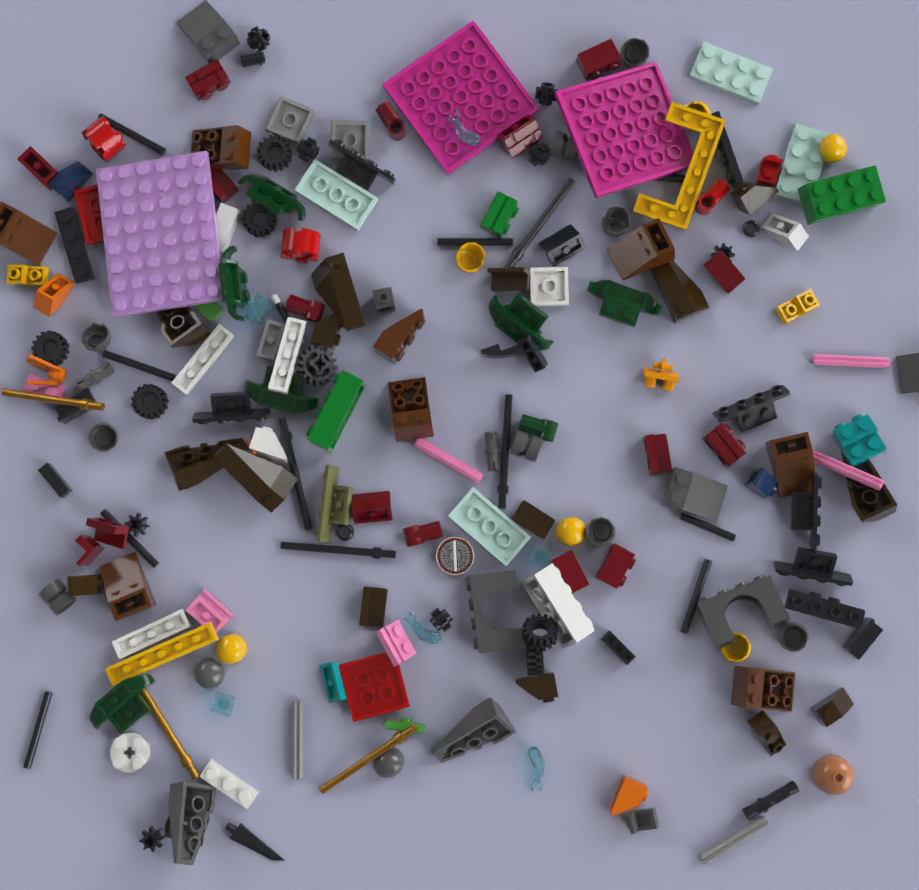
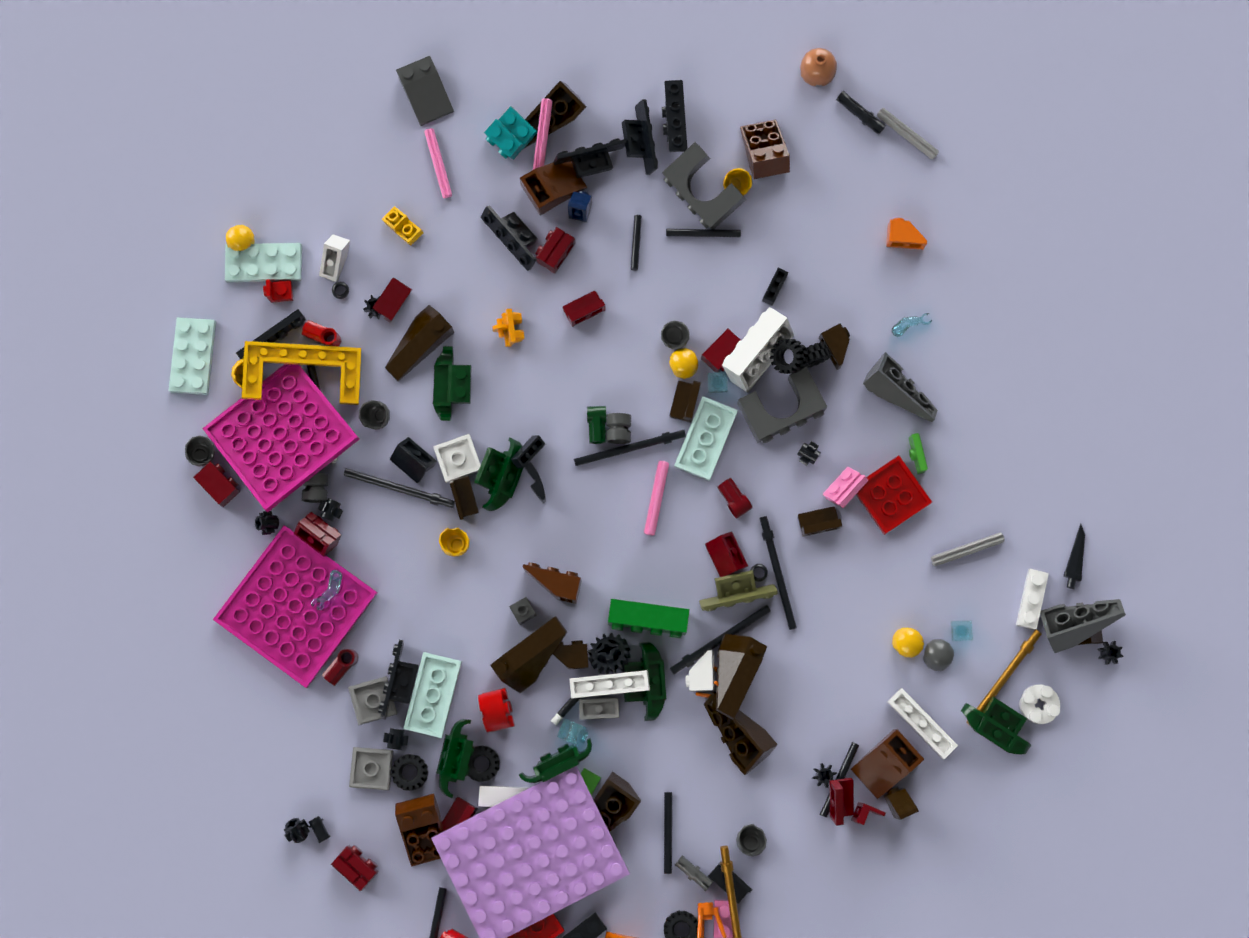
camera: 115 degrees left, 5 degrees down
(37, 729) = (1053, 802): black bar -> none
(55, 480) = (810, 875): black piece -> none
(57, 597) = (922, 827): dark grey wheel -> none
(96, 337) = (655, 885): dark grey hair -> none
(146, 390) = (710, 814): black tyre -> none
(162, 653) = (937, 705): yellow plate -> none
(203, 359) = (640, 769): white plate -> none
(208, 32) = (303, 887): dark grey slope -> none
(209, 609) = (881, 674): bright pink plate -> none
(231, 407) = (679, 724): black bracket -> none
(310, 310) = (556, 685): dark red piece -> none
(333, 681) = (902, 534): teal plate -> none
(389, 763) = (956, 458): dark grey hair -> none
(398, 738) = (931, 453): pearl gold bar -> none
(410, 409) = (620, 549): reddish brown slope -> none
(424, 634) = (827, 466): clear light blue arm -> none
(455, 555) = (744, 461): tile -> none
(480, 241) = (435, 543): black bar -> none
(491, 451) = (634, 459): dark grey pin -> none
(499, 215) = (402, 528): green brick -> none
(615, 566) = (702, 311): dark red brick -> none
(642, 250) = (395, 381): reddish brown slope -> none
(642, 820) = (920, 215): dark grey bracket -> none
(694, 494) = (610, 263): dark grey slope -> none
(751, 196) = (309, 297): slope -> none
(767, 733) = (803, 133): dark brown slope -> none
(793, 637) = (709, 136): dark grey hair -> none
(832, 707) = (760, 85): dark brown slope -> none
(841, 195) = (284, 216): green brick -> none
(862, 638) = (691, 78): black panel -> none

